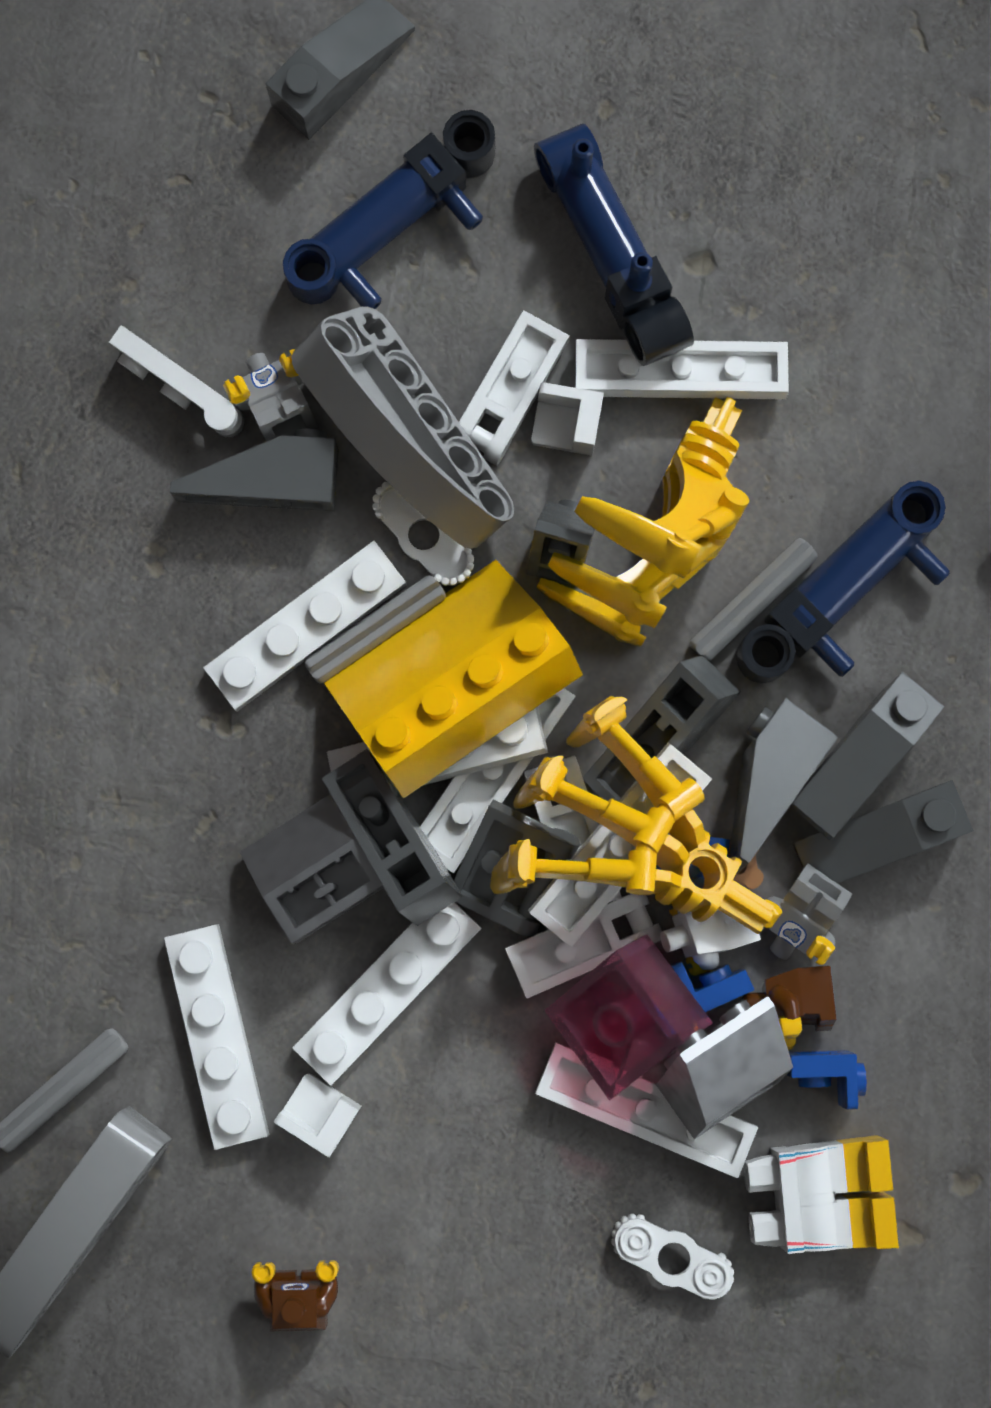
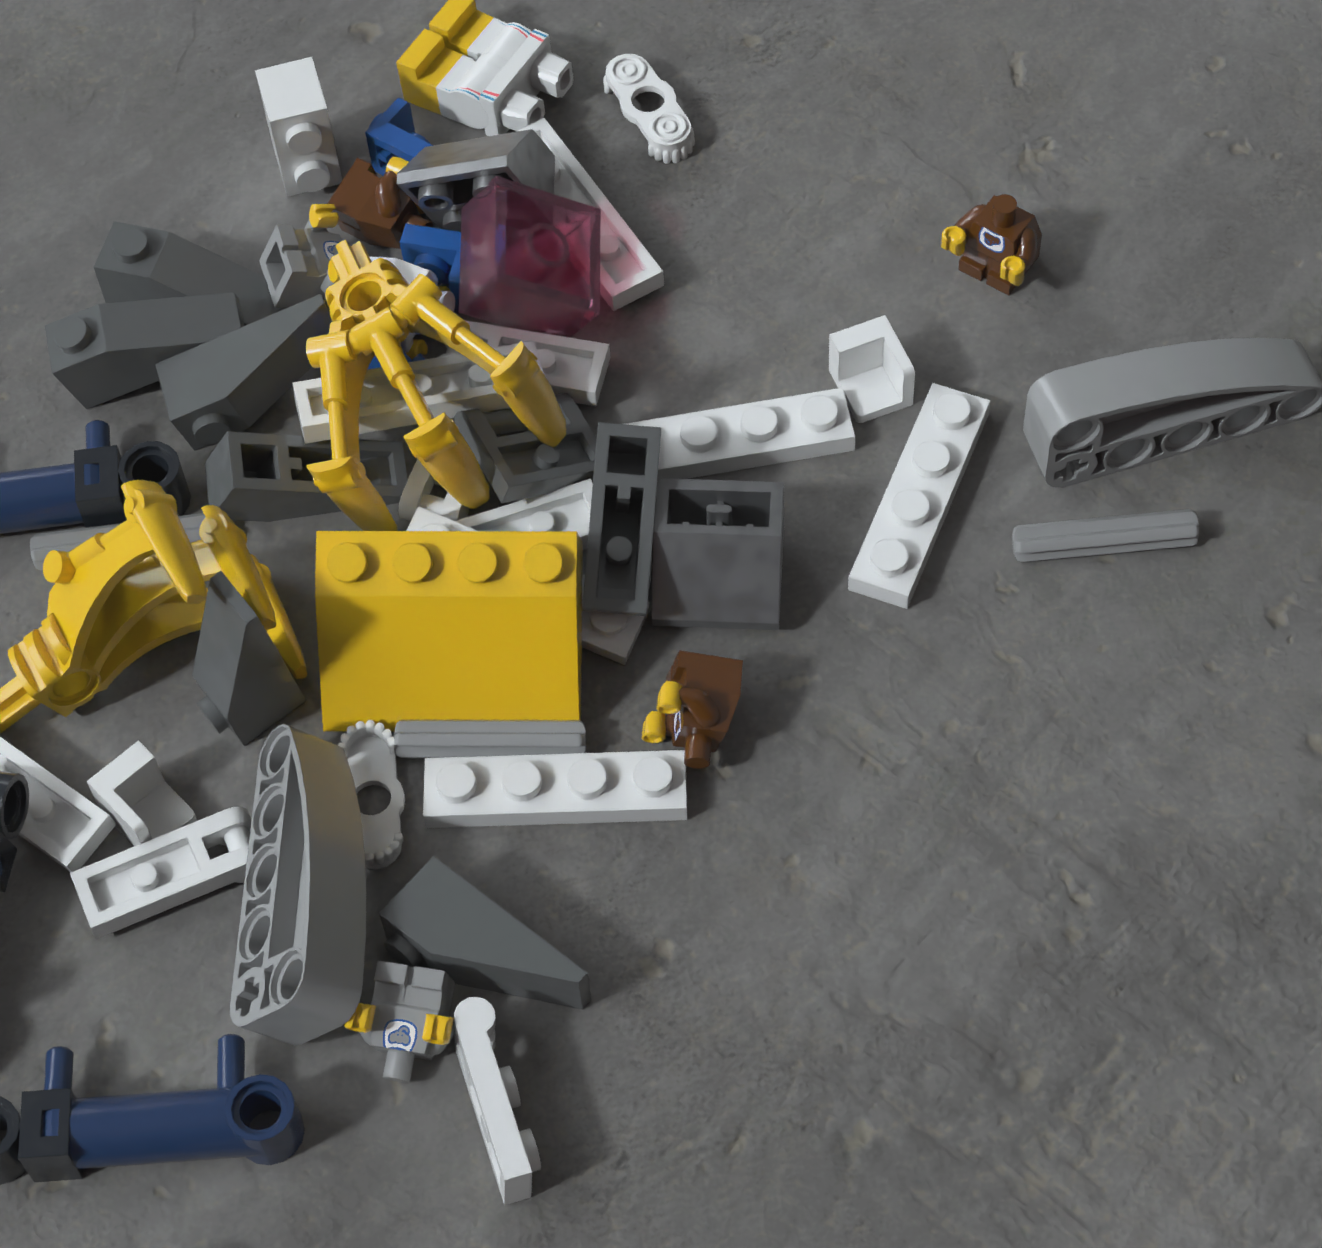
camera: 140 degrees left, 25 degrees down
(242, 742) = (701, 701): none -> reddish brown piece
(910, 1021) = (299, 126): none -> white brick

